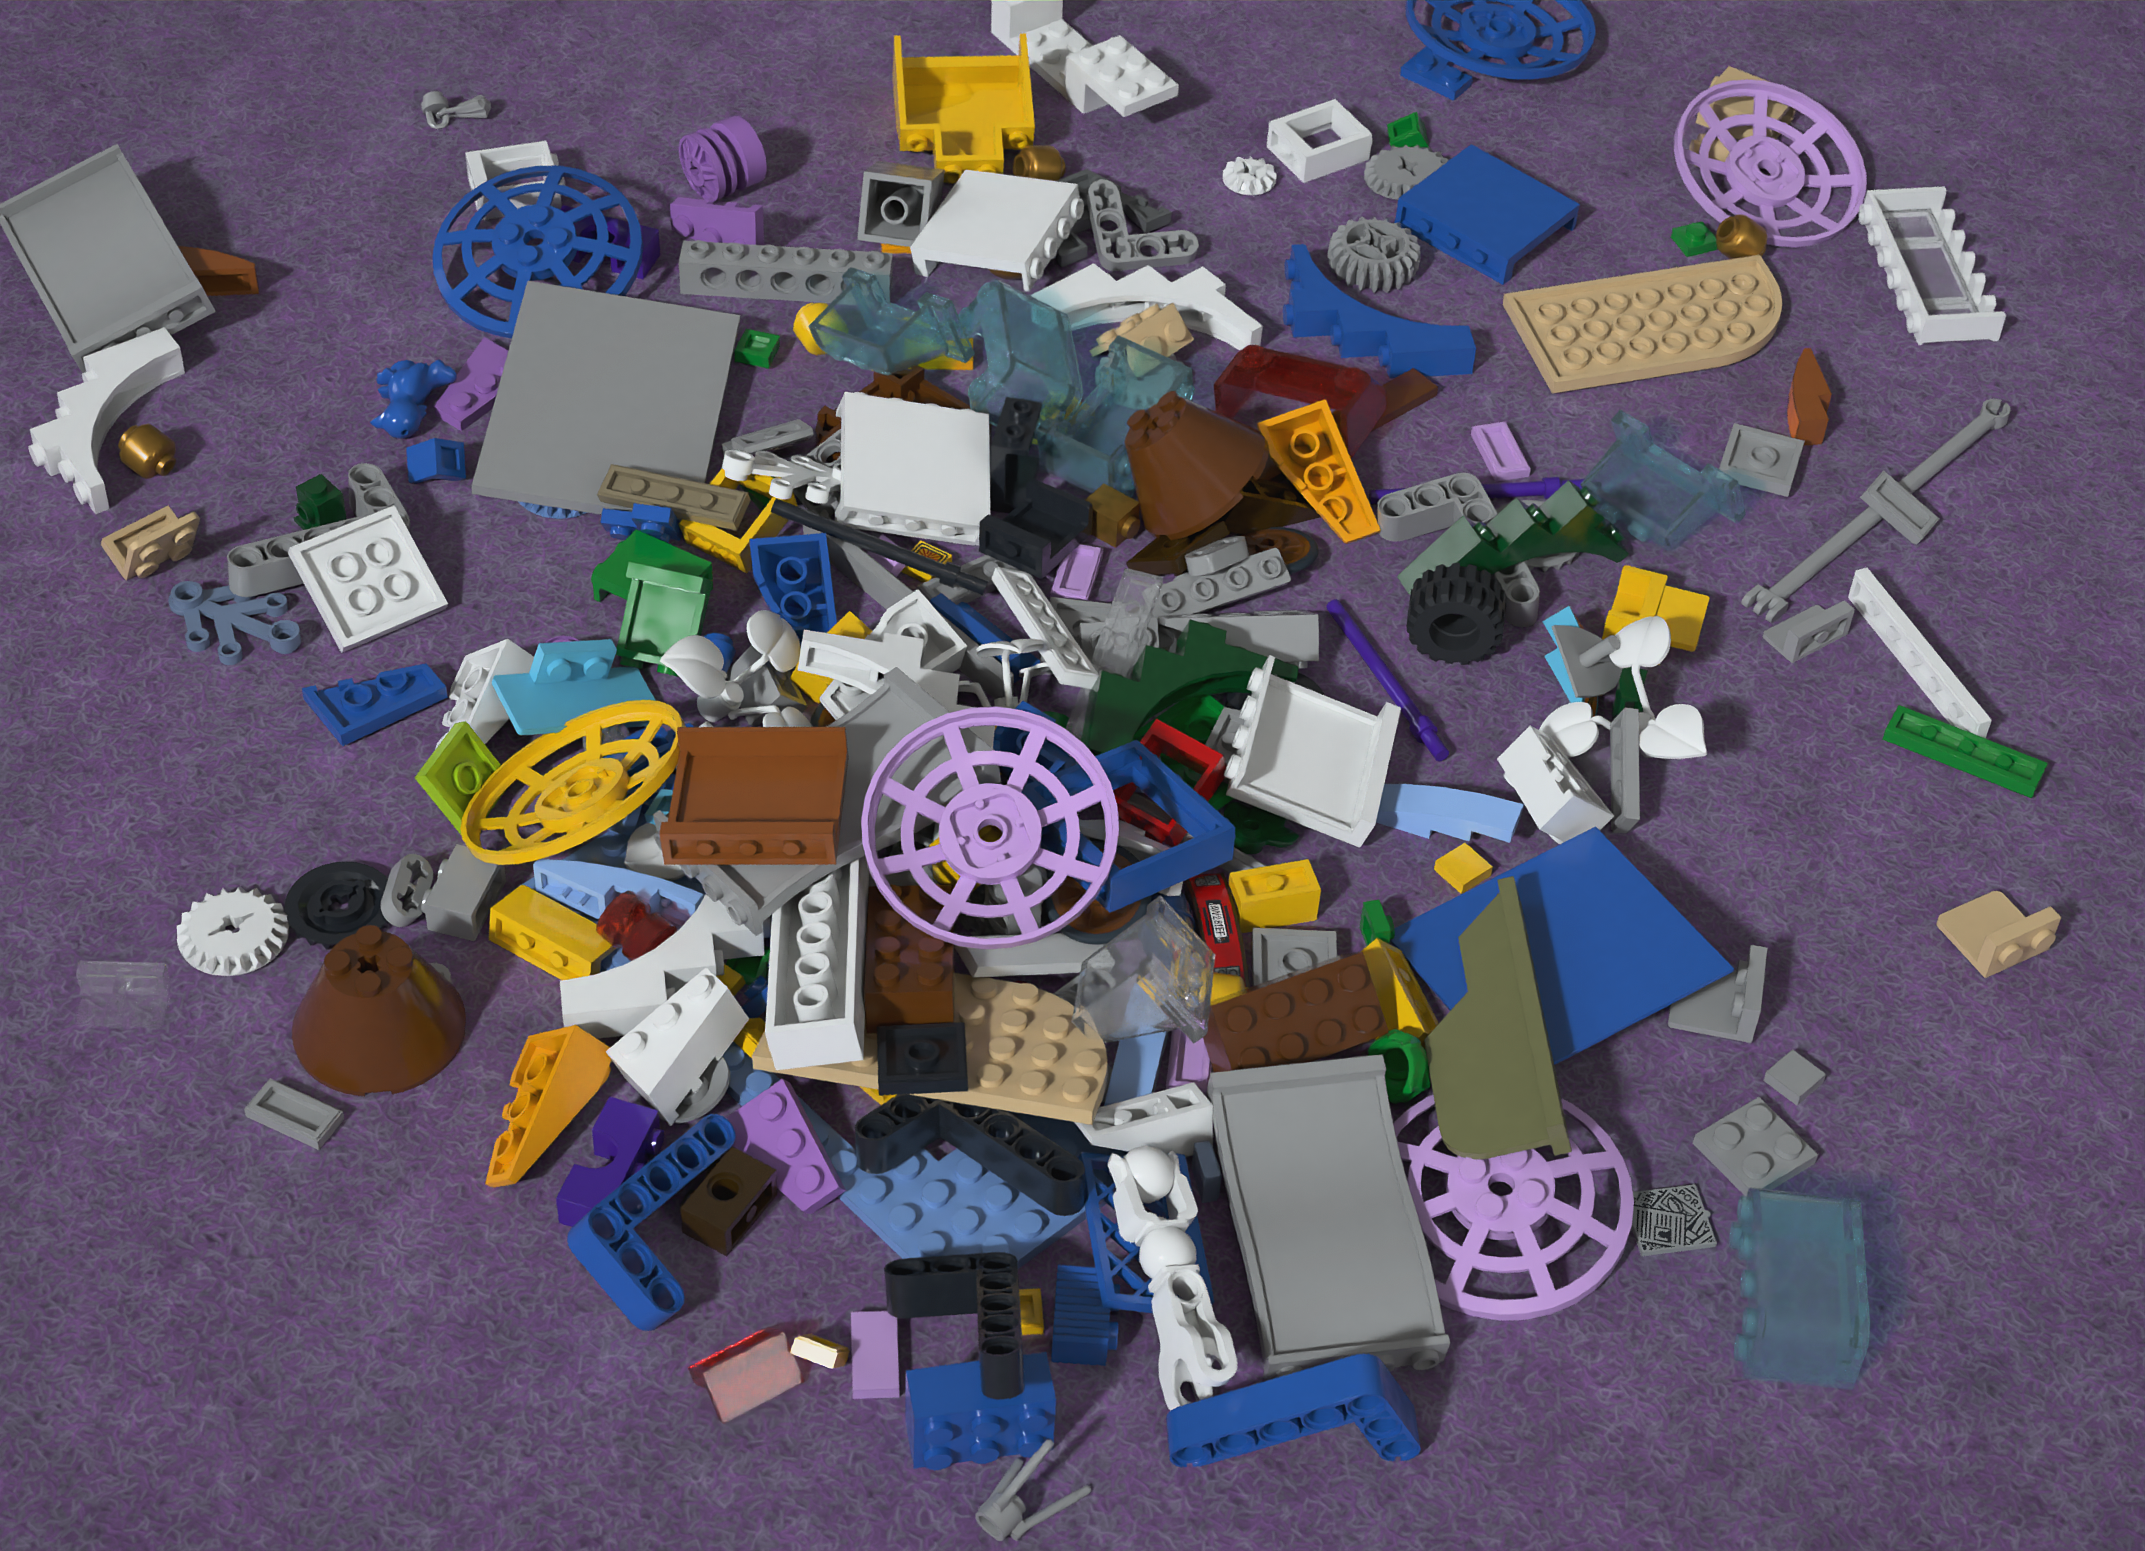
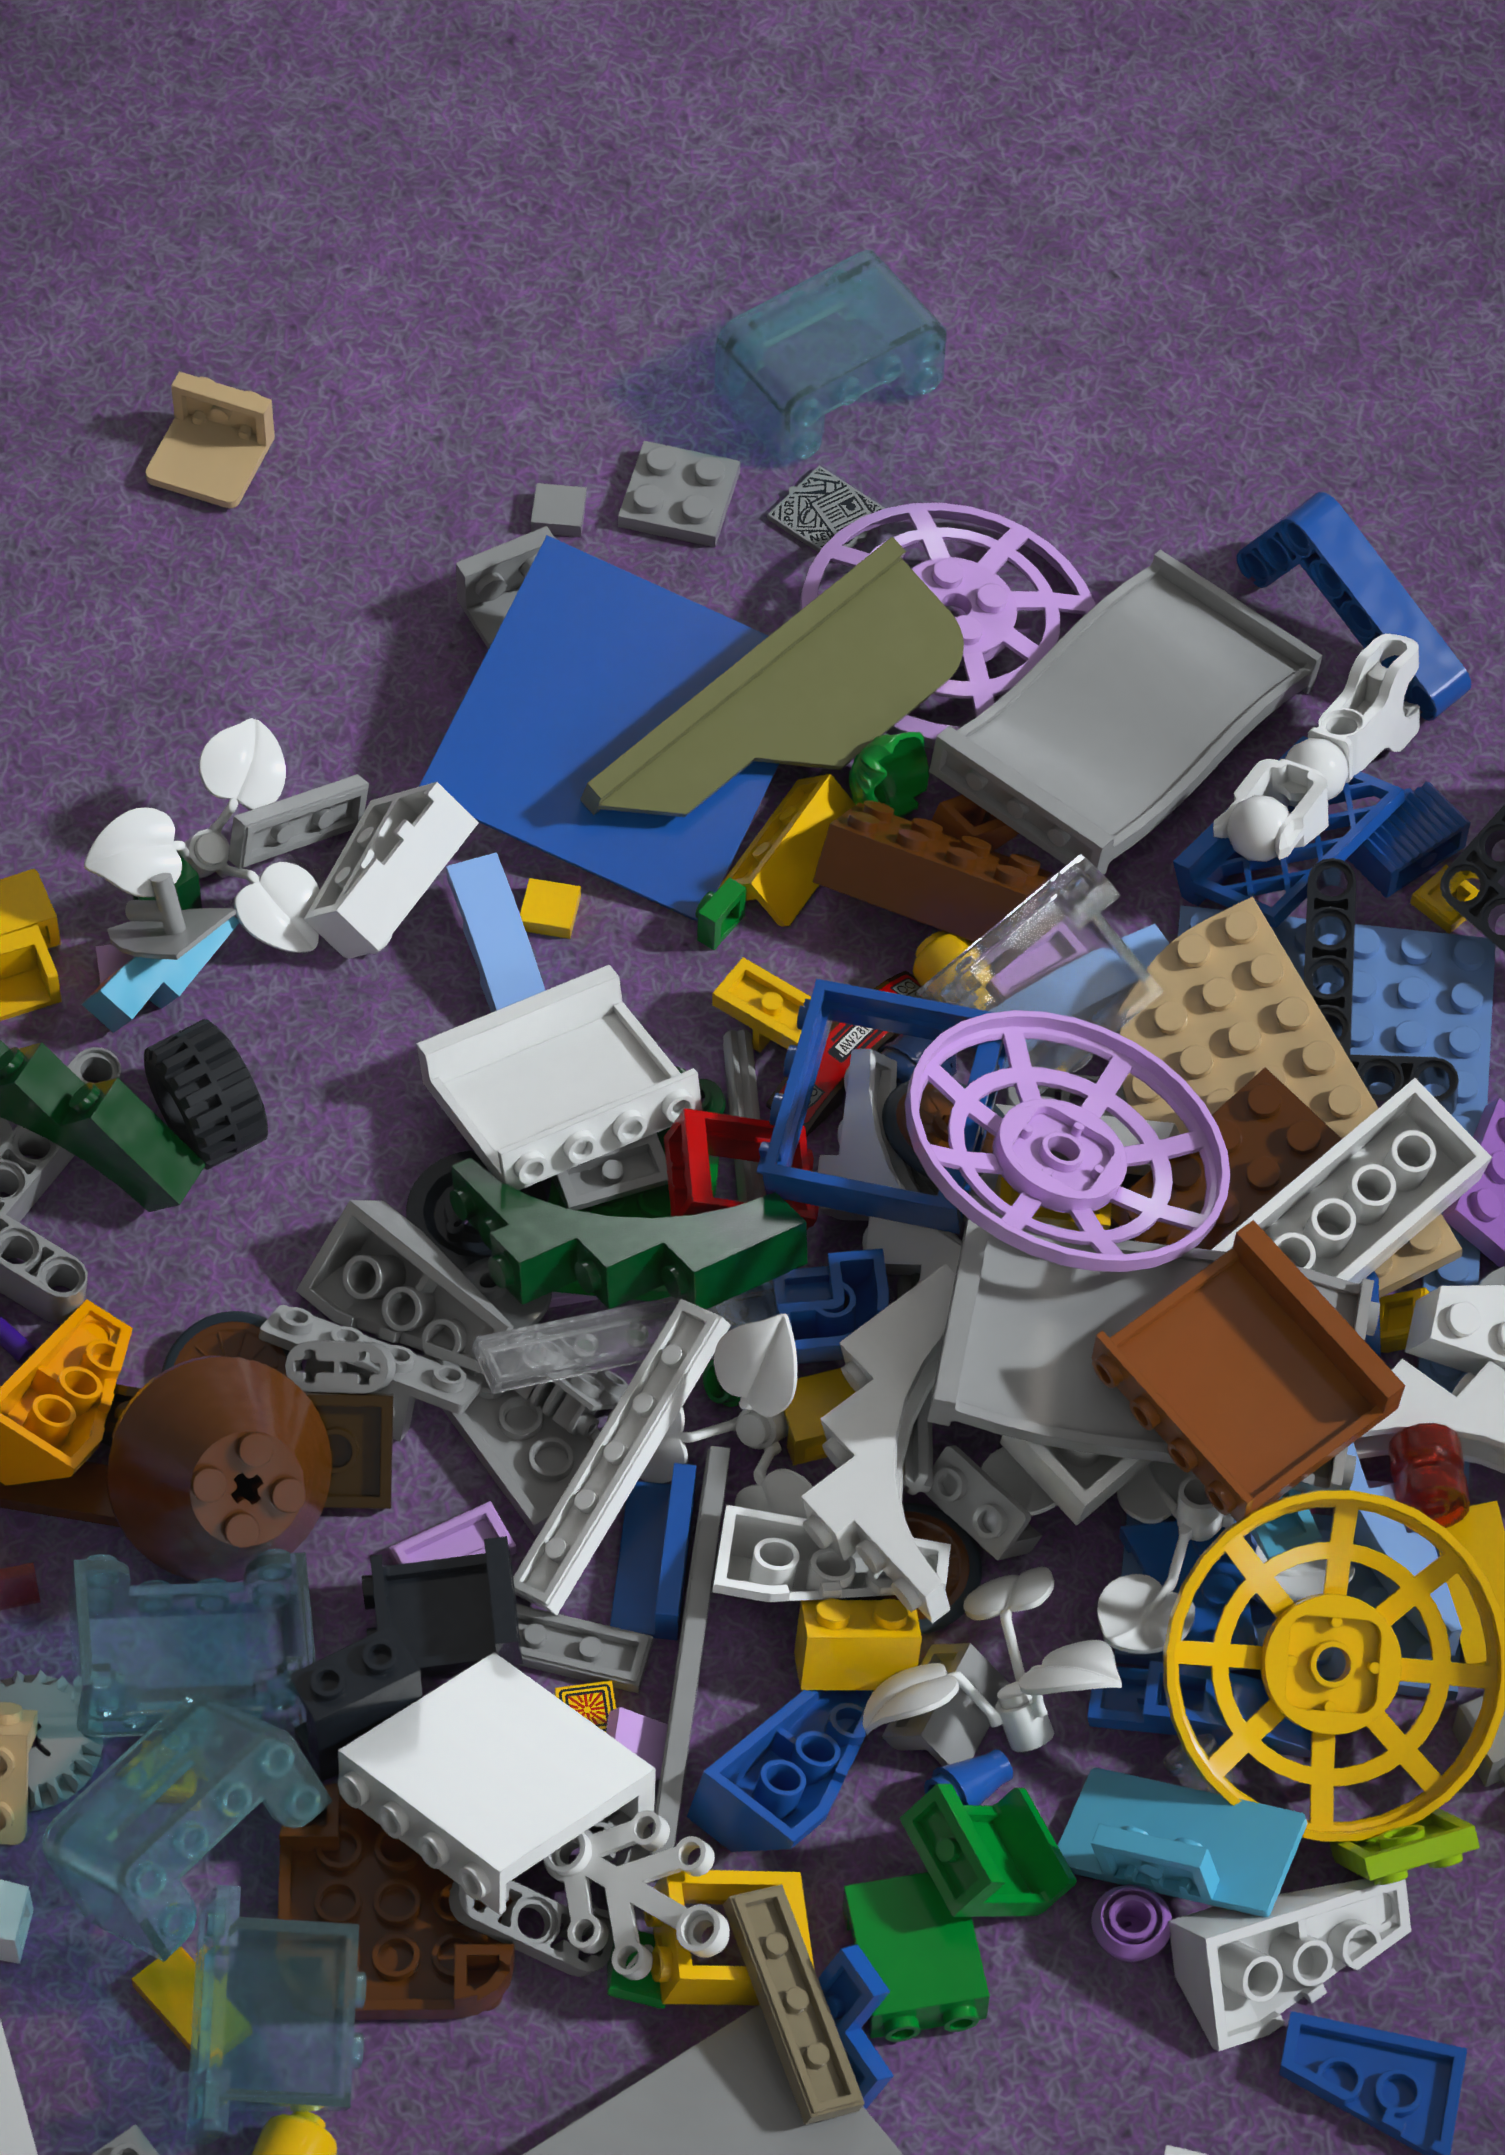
camera: 130 degrees left, 10 degrees up
(771, 438) = (574, 2017): light grey slope -> none
(922, 1058) = (1341, 1069): black tile -> none
(948, 573) = (607, 1649): black bar -> none
(1114, 515) = (334, 1569): pearl gold brick -> none
(1161, 1120) = (1164, 895): white slope -> none
(1206, 1171) = (1159, 852): sand blue tile -> none
(1288, 950) = (836, 944): light grey plate -> none
(1420, 726) = (377, 1064): dark purple bar -> none

